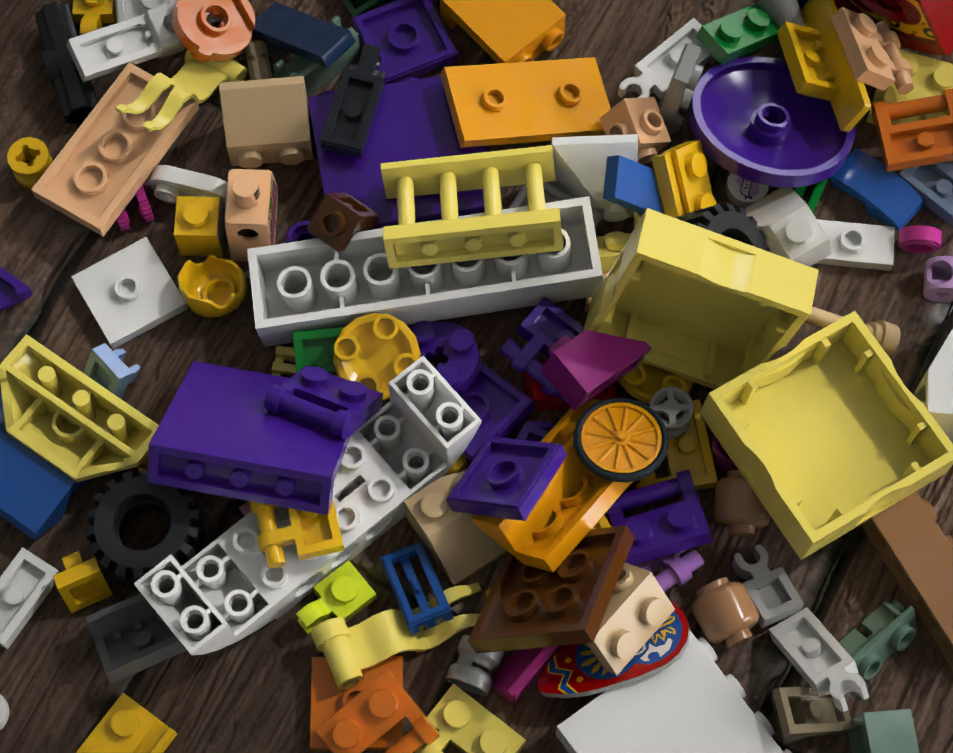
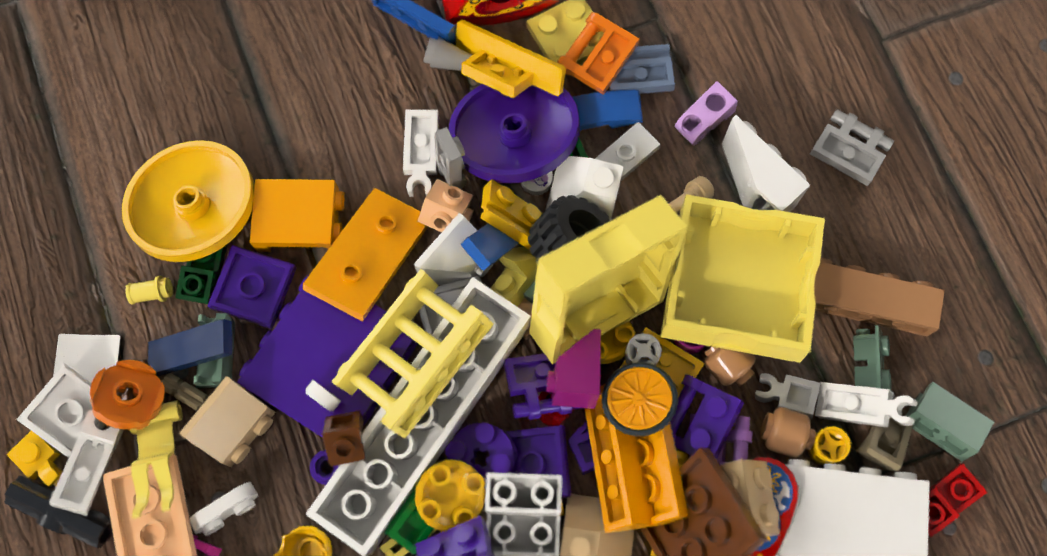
camera: 45 degrees left, 5 degrees up
(199, 226) = (255, 526): yellow brick -> none
(253, 206) = (280, 487): light nougat torso -> none
(355, 105) = (273, 359): black hinge -> none
(361, 171) = (322, 396): none -> white tile
(507, 478) = (605, 490): dark purple plate -> none
(738, 34) = (440, 95): green plate -> none
(755, 656) = (836, 444): none -> yellow wheel
(872, 51) = (527, 33): light nougat plate -> none
(919, 239) = (659, 115): dark pink tile -> none

